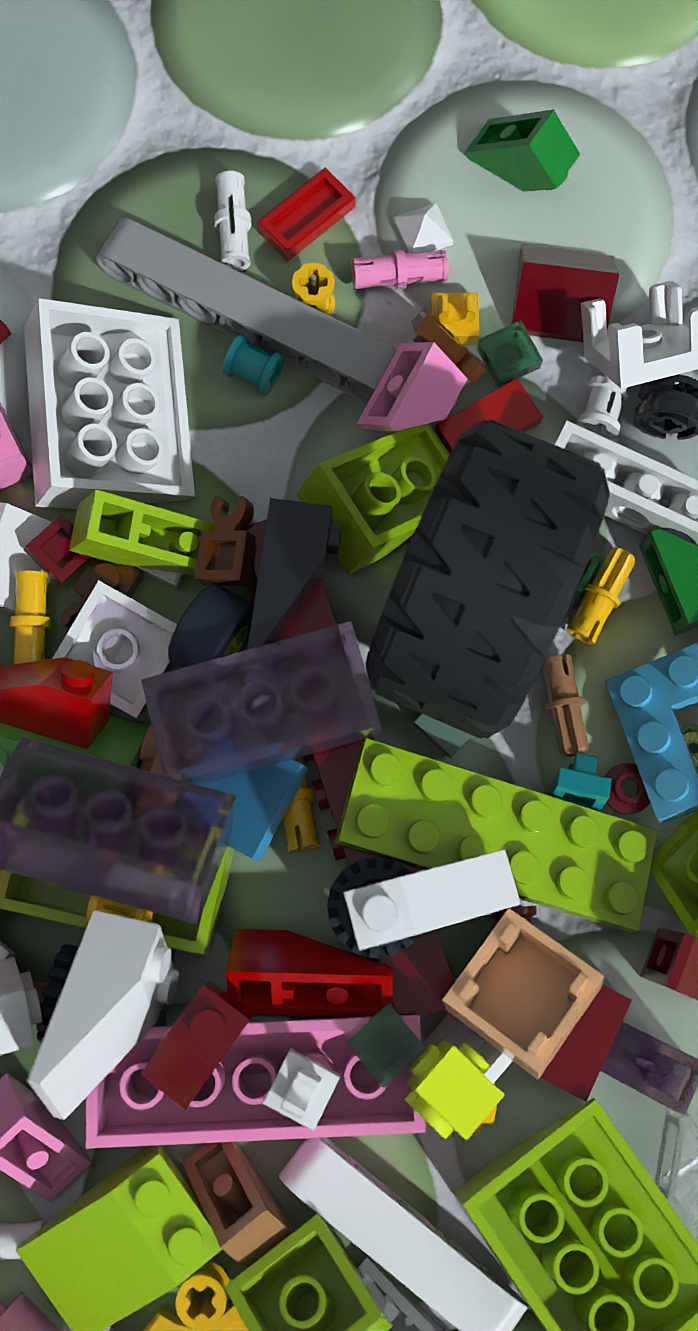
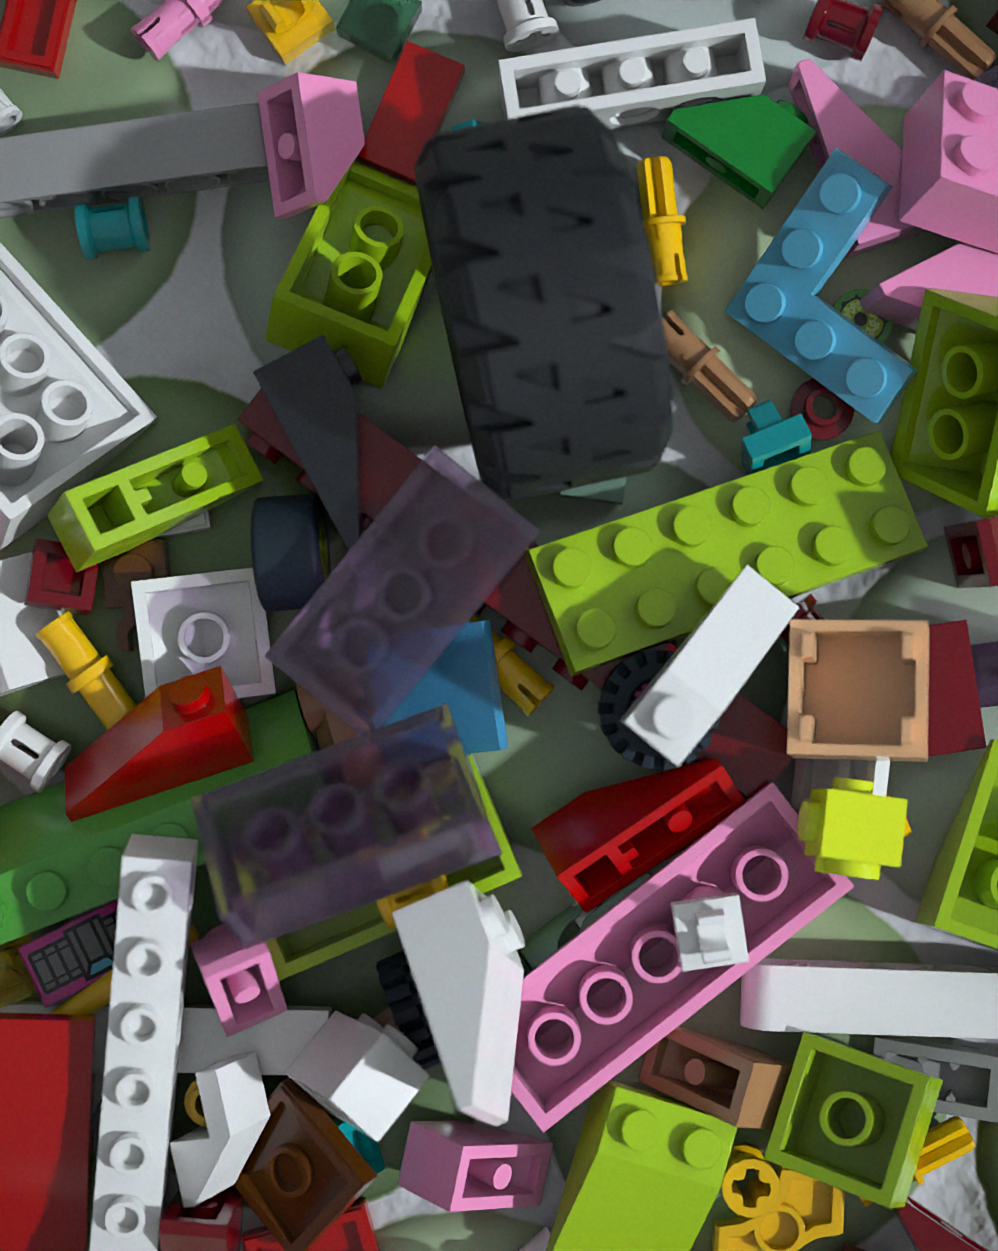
camera: 35 degrees left, 10 degrees up
(197, 1043) = (581, 962): dark red slope -> none
(227, 551) = (244, 456): reddish brown plate -> none
(324, 286) = (121, 80): yellow bush -> none
(386, 1045) = (761, 833): clear green plate -> none
(432, 330) = (287, 55): reddish brown plate -> none

